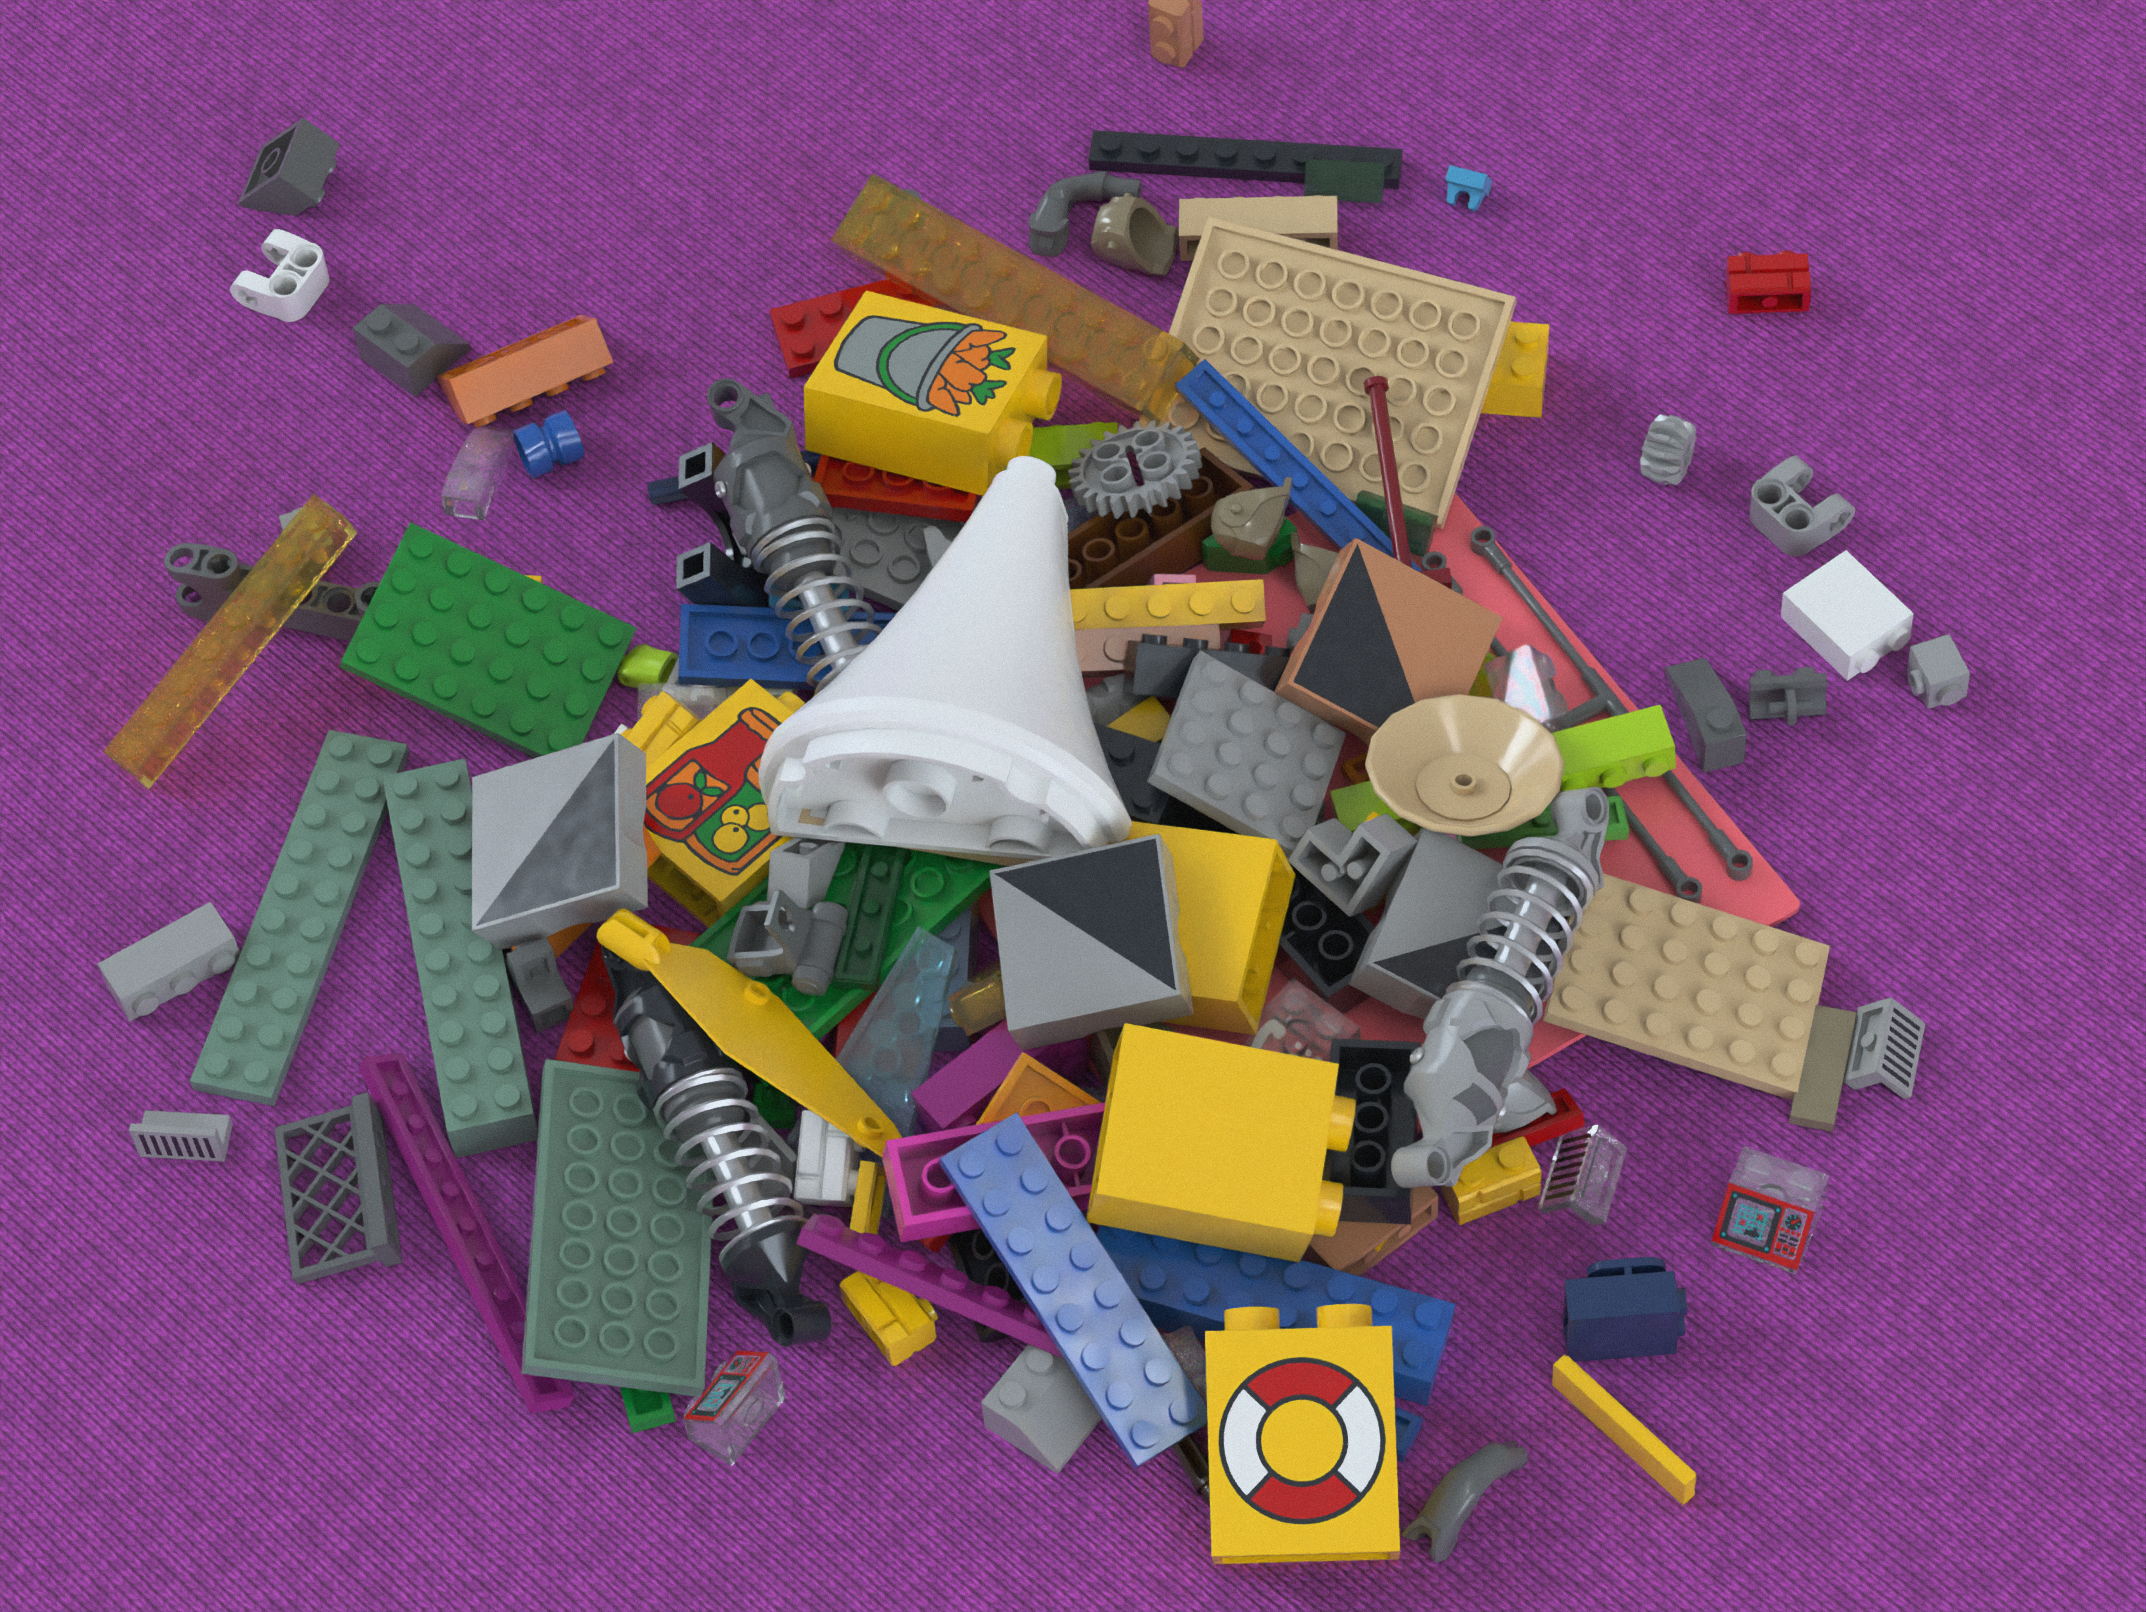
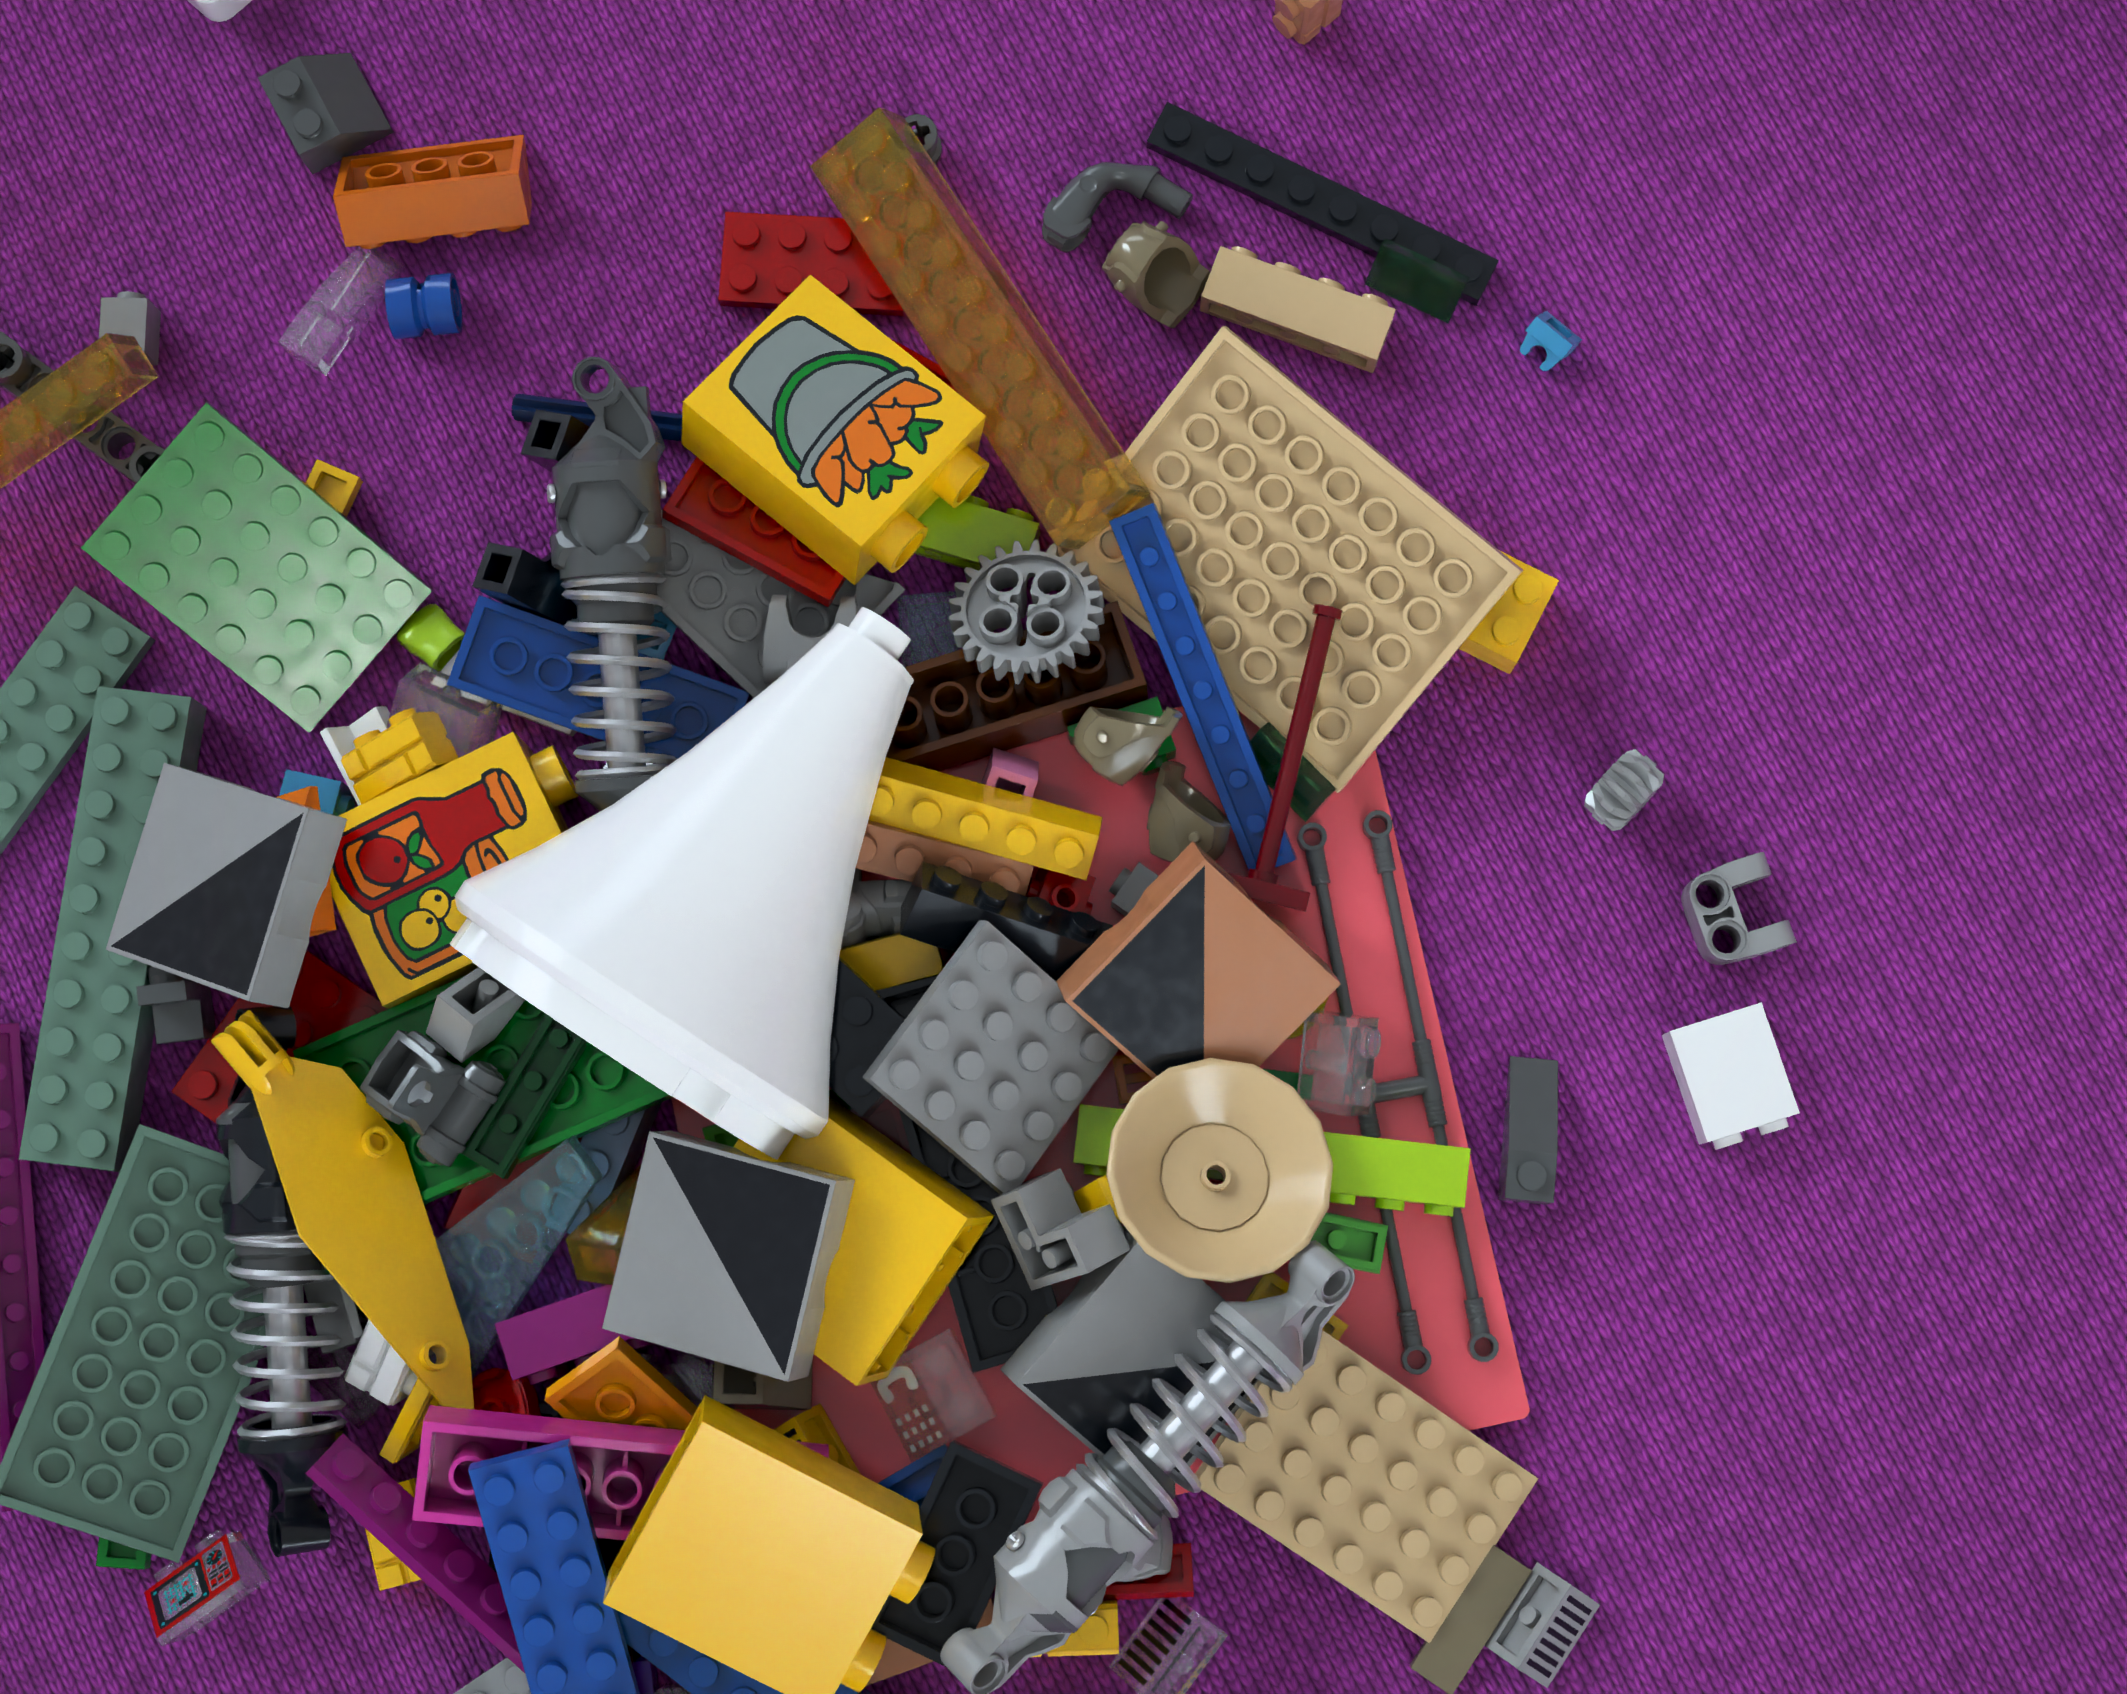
camera: 20 degrees right, 25 degrees up
(1768, 283) = (1828, 601): red brick -> none
(1787, 695) = (1623, 1156): dark grey hips -> none
(1937, 672) = (1796, 1187): light grey brick -> none

